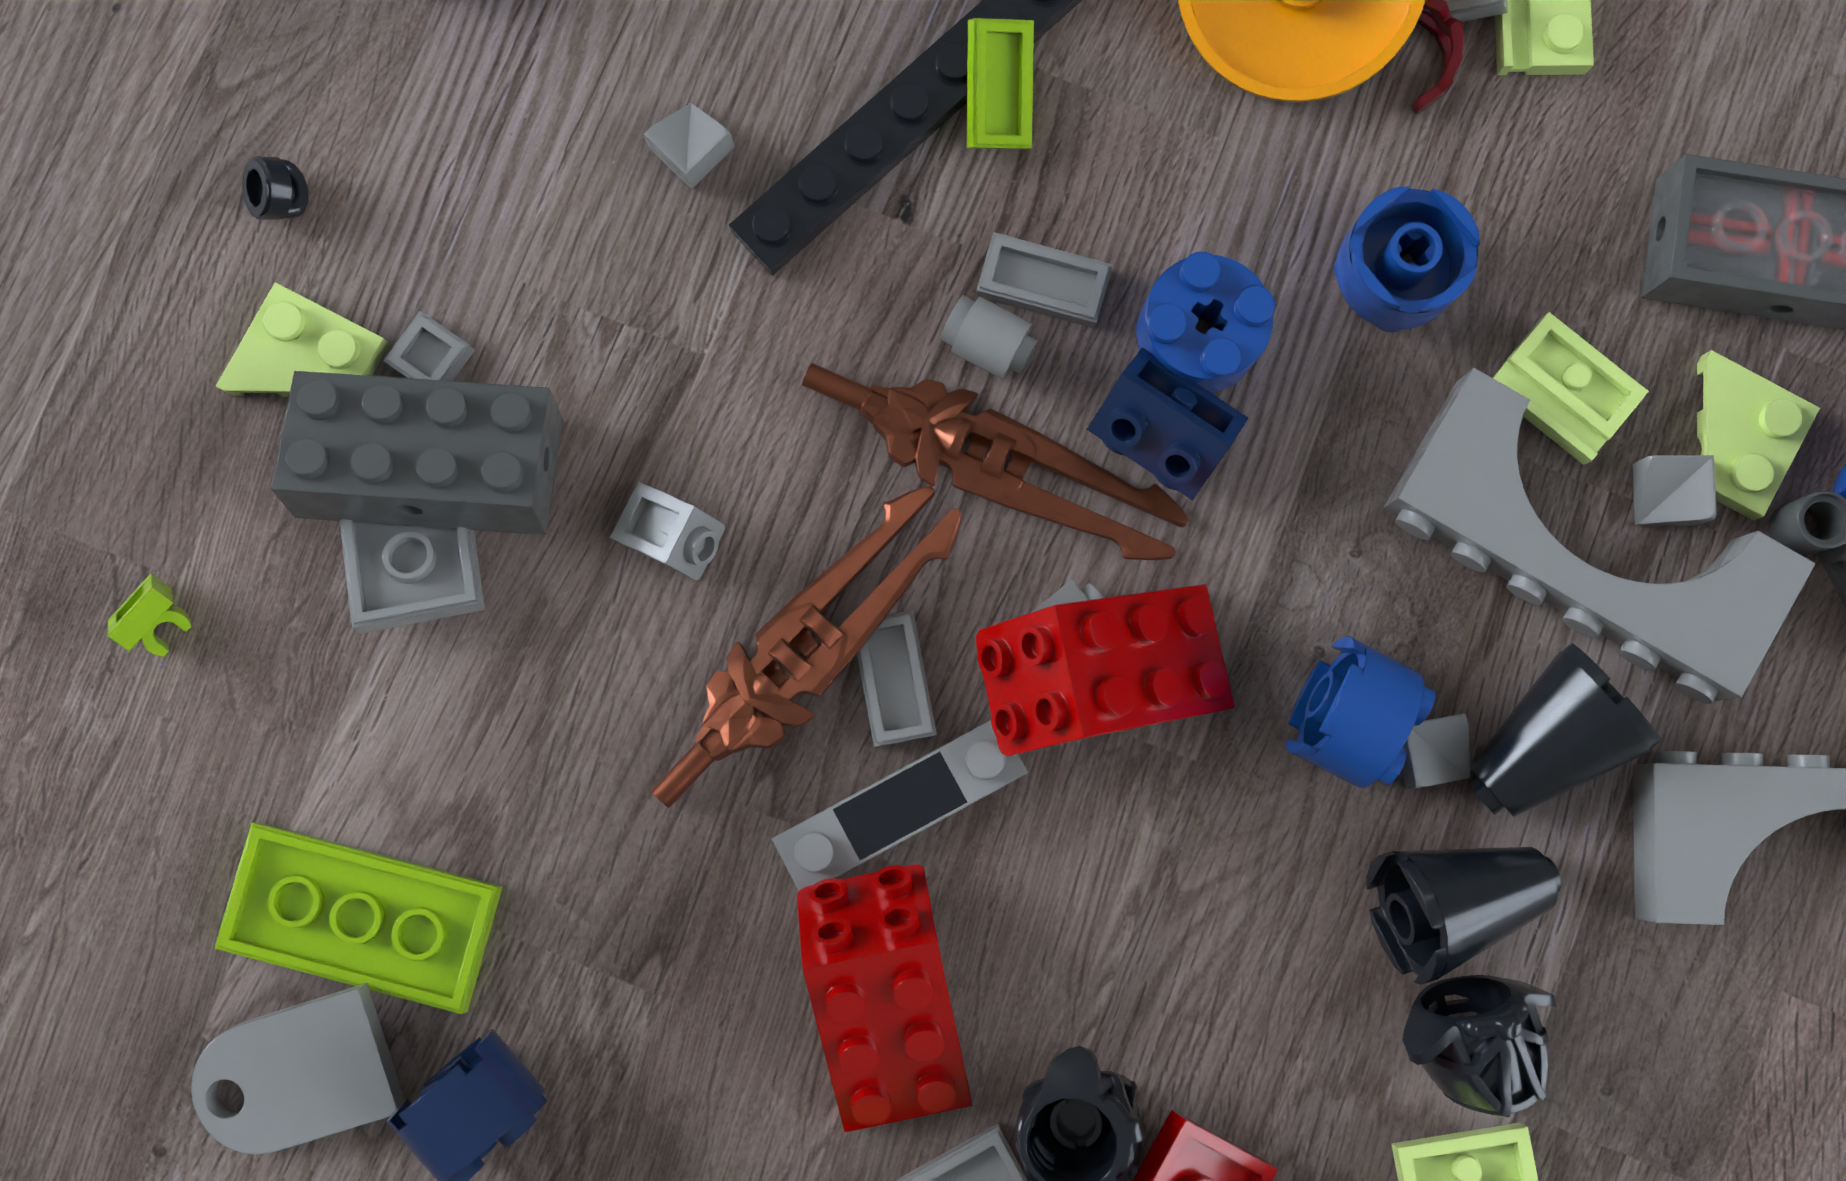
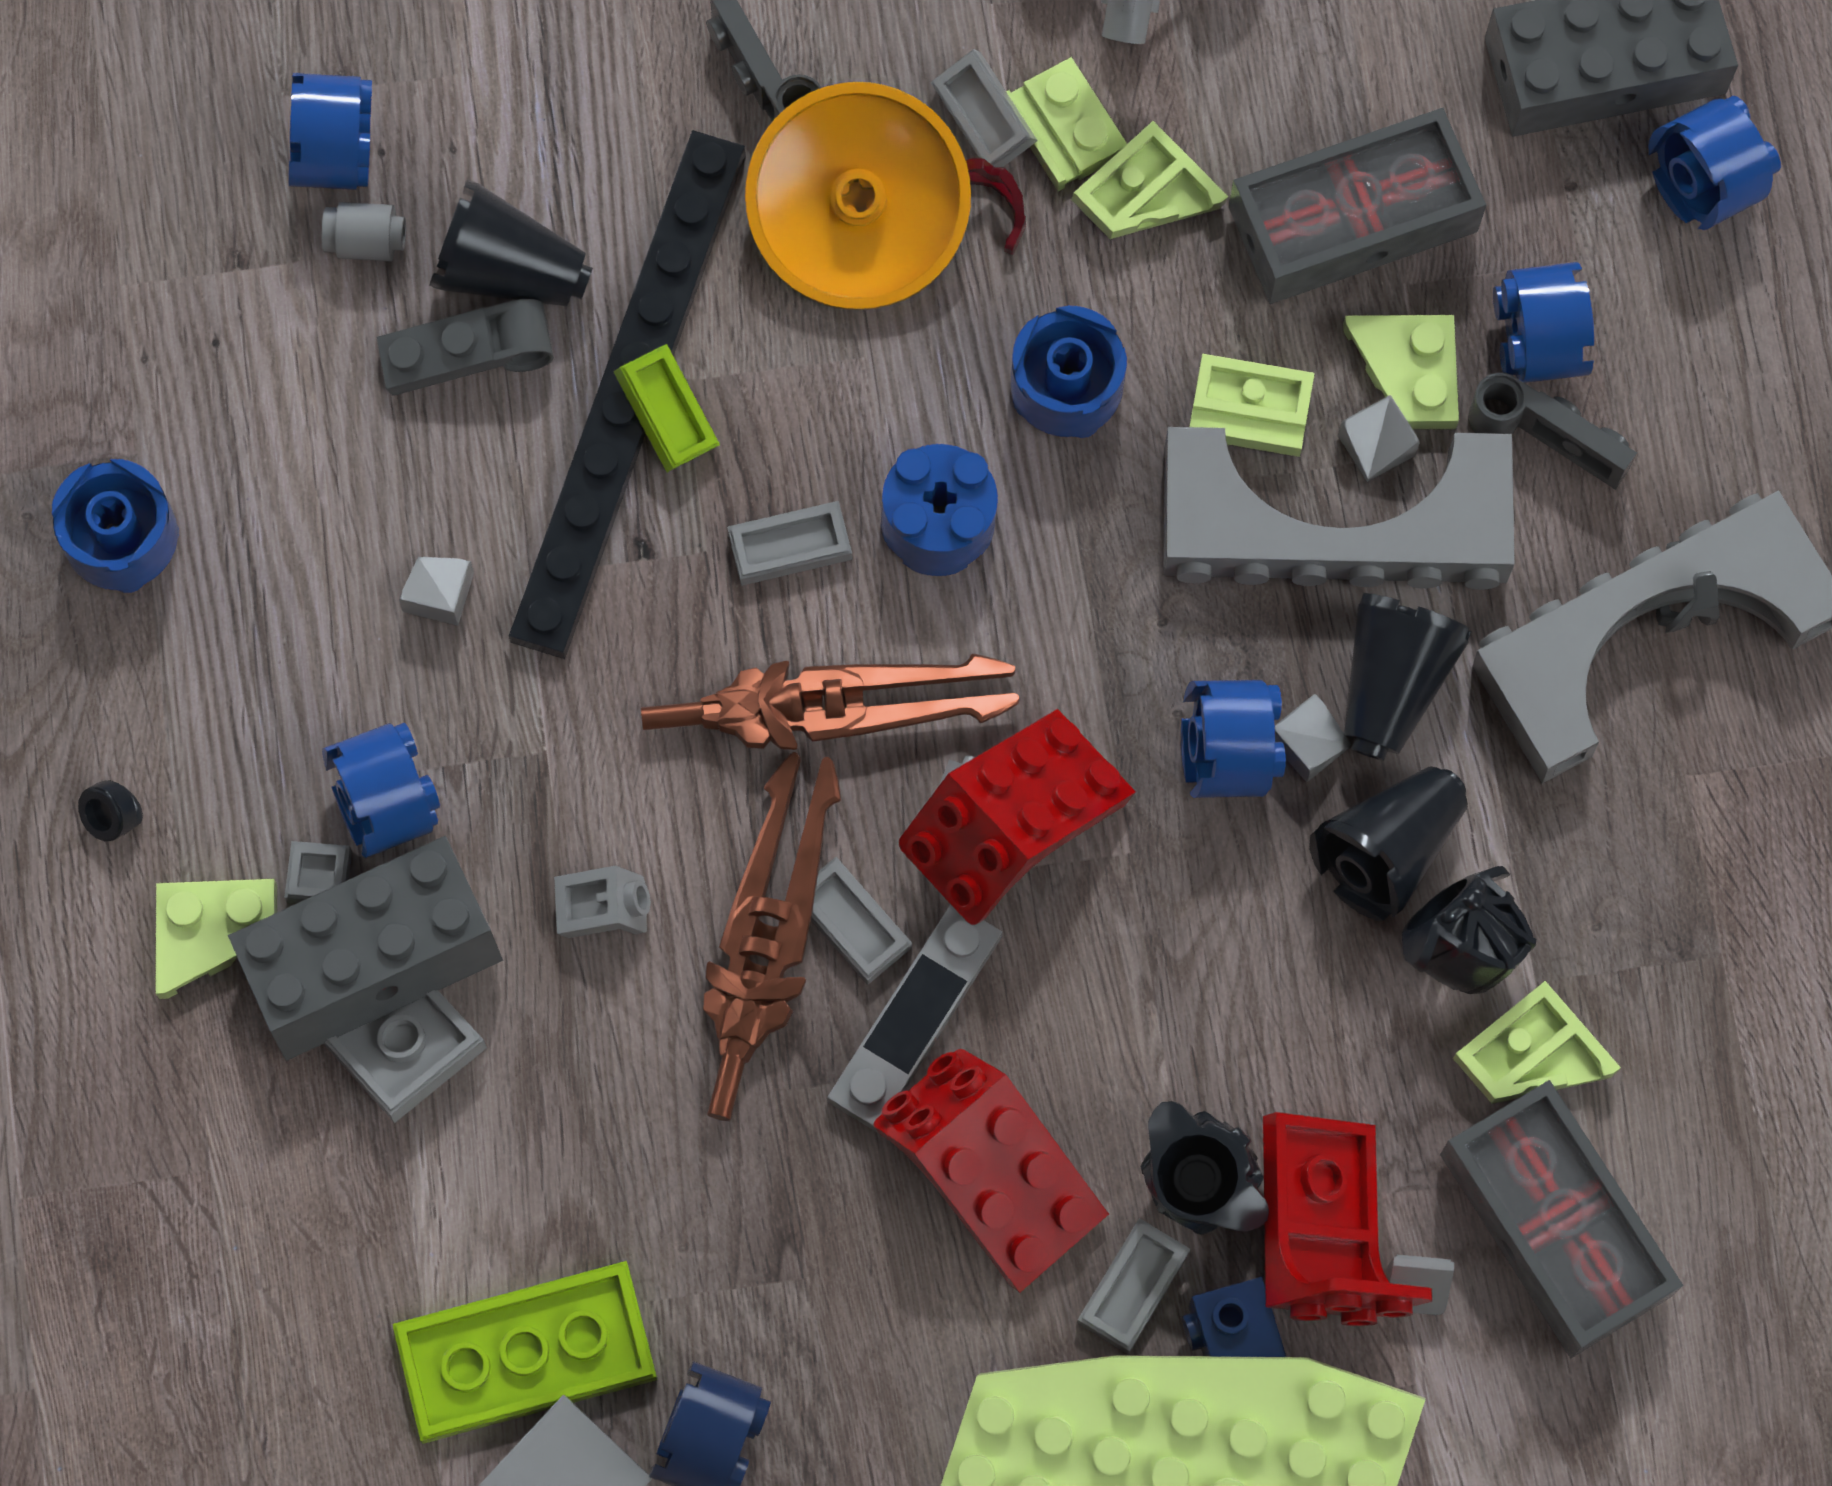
camera: 35 degrees left, 10 degrees down
(142, 613) = (203, 1204): lime tile -> none
(517, 307) = (380, 788): none -> blue brick
(989, 336) = (773, 609): light grey brick -> none
(1166, 424) = (954, 600): dark blue brick -> none
(1589, 116) = (1147, 187): none -> yellowish green wing

